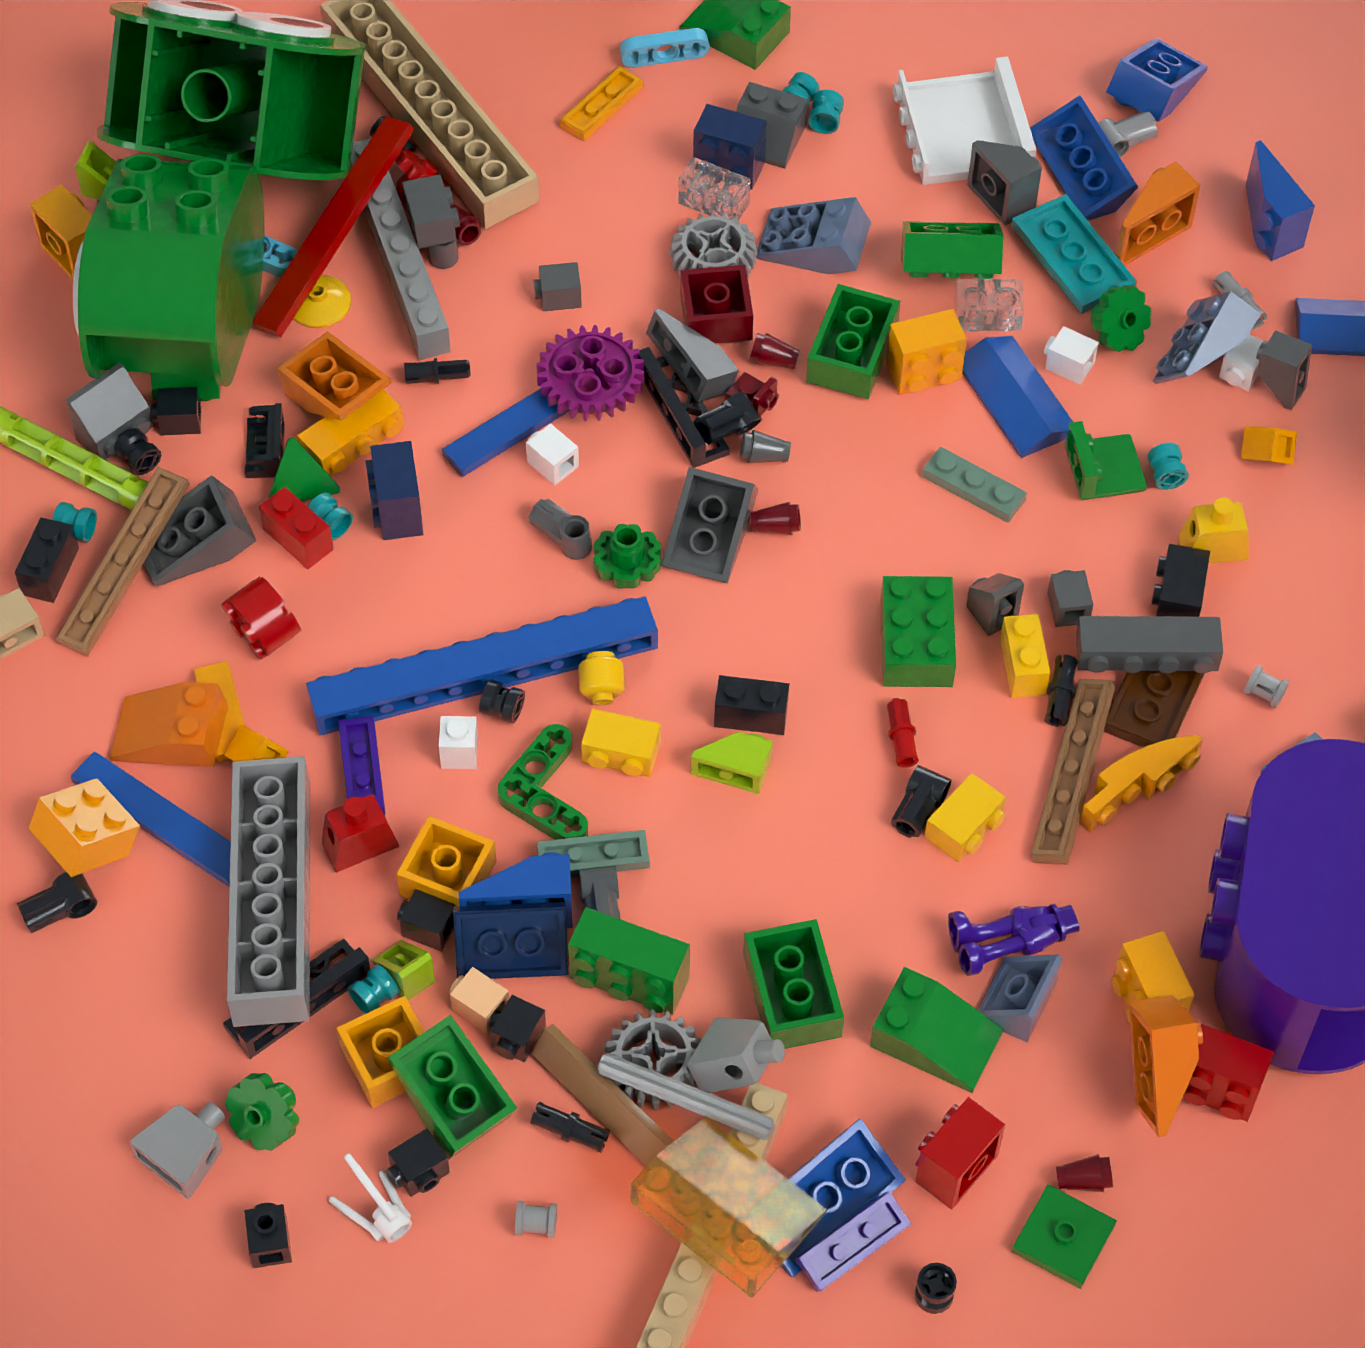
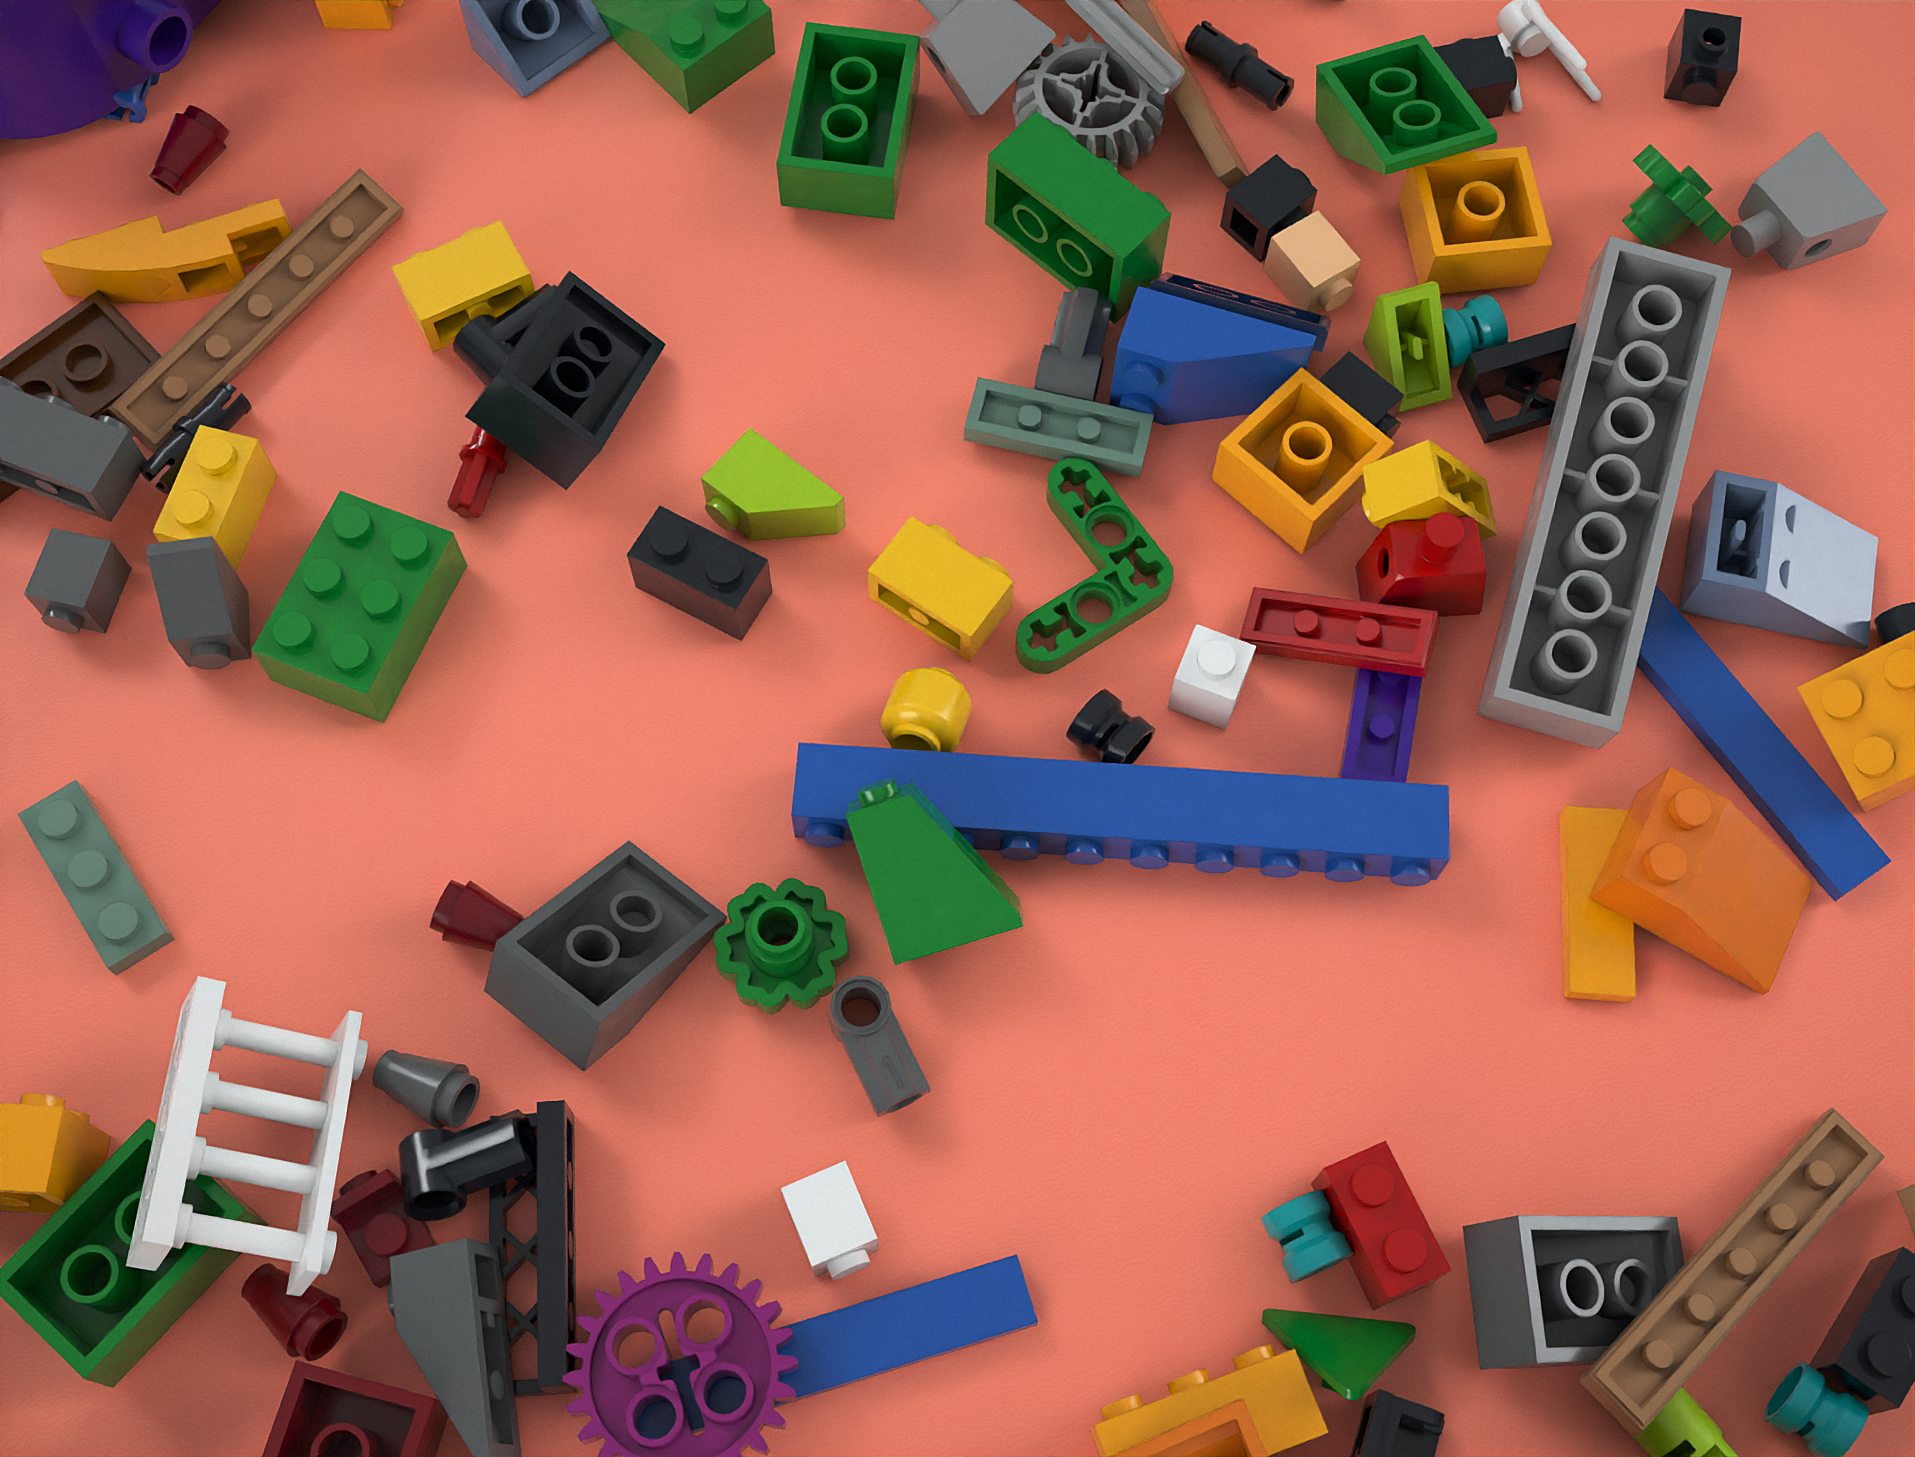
camera: 160 degrees left, 10 degrees up
(158, 907) = (1778, 562): none -> sand blue slope
(251, 745) = (1560, 783): light orange panel -> none
(261, 617) = (1499, 1029): red brick -> none
(367, 856) = (1425, 483): none -> yellow brick
(394, 490) = (1169, 1216): dark blue brick -> none
(398, 786) = (1341, 631): none -> red tile
(564, 589) = (925, 874): none -> green slope
(855, 384) = (181, 1155): none -> white fence
(873, 772) = (567, 381): none -> black slope
(1030, 930) = (469, 102): dark purple piece -> none
(1174, 846) = (188, 149): none -> dark red cone

